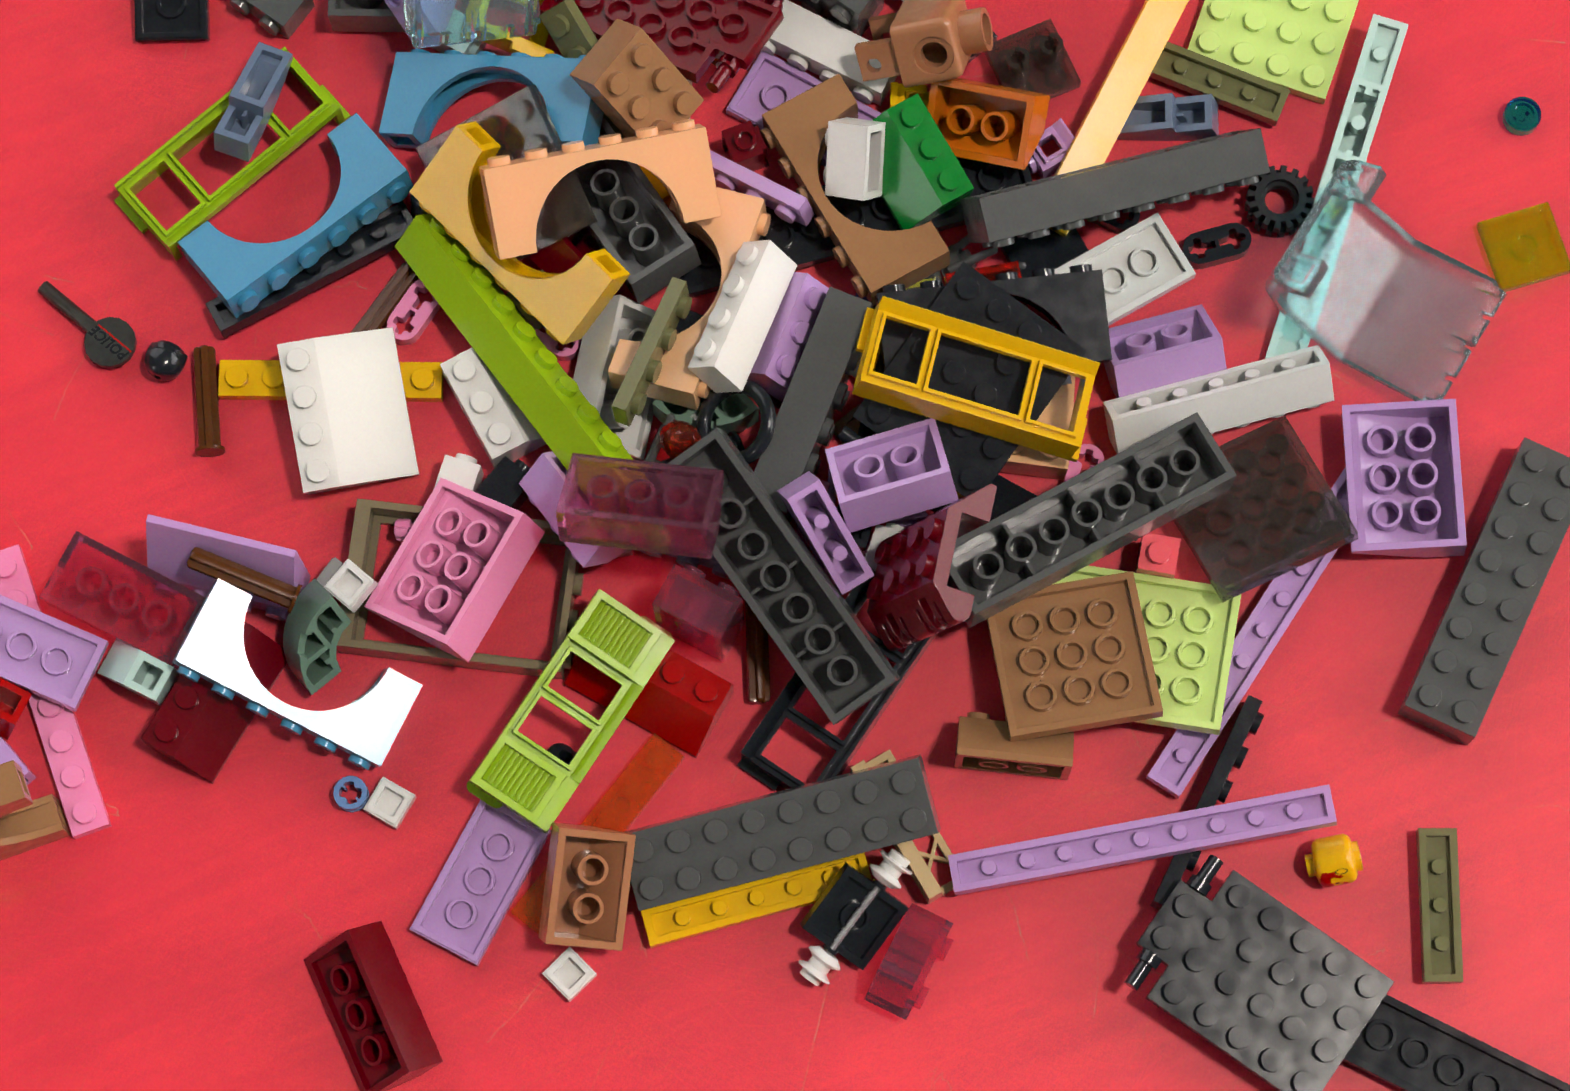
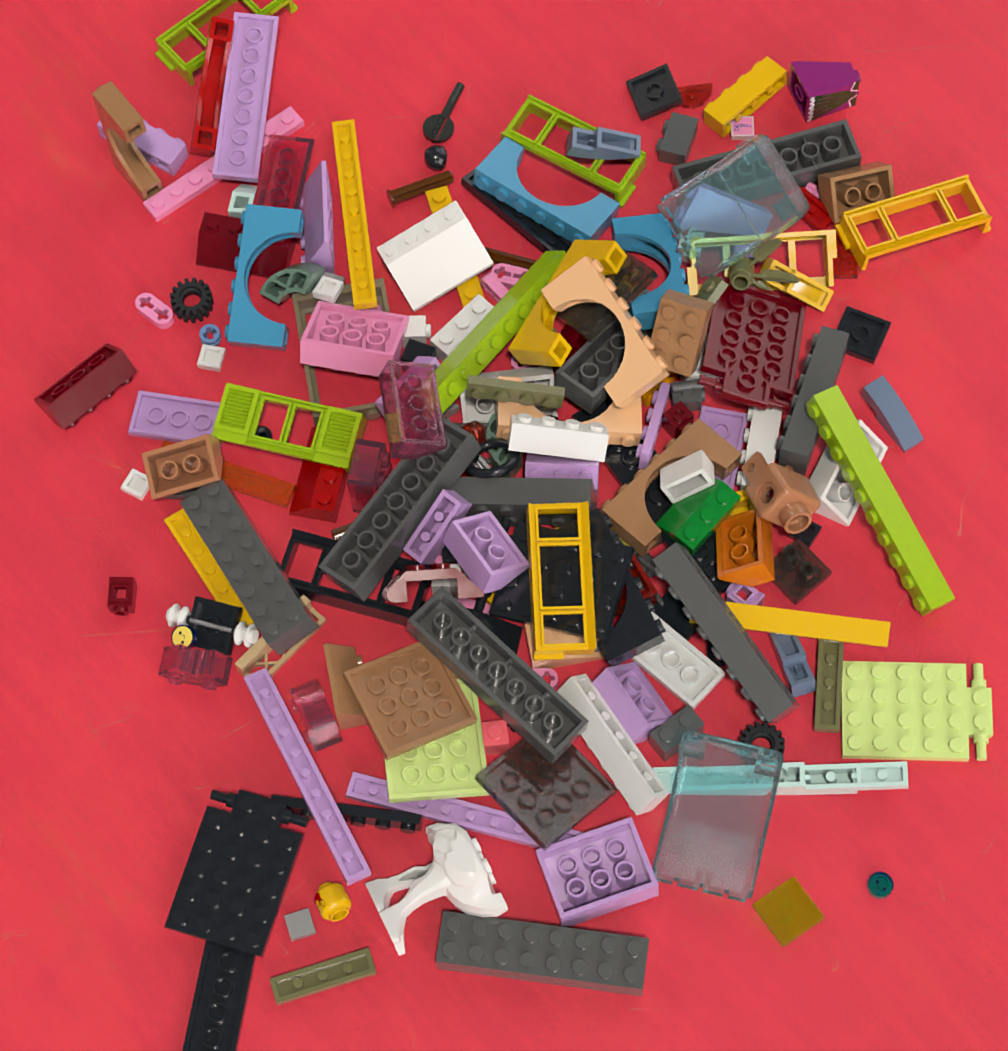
camera: 75 degrees right, 10 degrees down
(227, 509) = (354, 215): none -> yellow plate
(243, 578) = (308, 226): reddish brown axle -> none
(270, 784) = (188, 289): none -> black tyre
(270, 861) = (157, 307): none -> bright pink beam
(430, 341) = (493, 287): none -> bright pink beam
(714, 116) = (688, 392): none -> dark grey brick
(739, 1039) = (119, 605): none -> dark red window
(858, 965) = (184, 635): none -> light yellow tile
(1042, 805) = (315, 715): none -> clear pink brick
(1214, 237) = (722, 713): black beam -> none
(1228, 306) = (667, 737): none -> dark grey brick
(1350, 918) = (300, 924): none -> light grey tile
(1357, 673) = (456, 872): none -> white animal

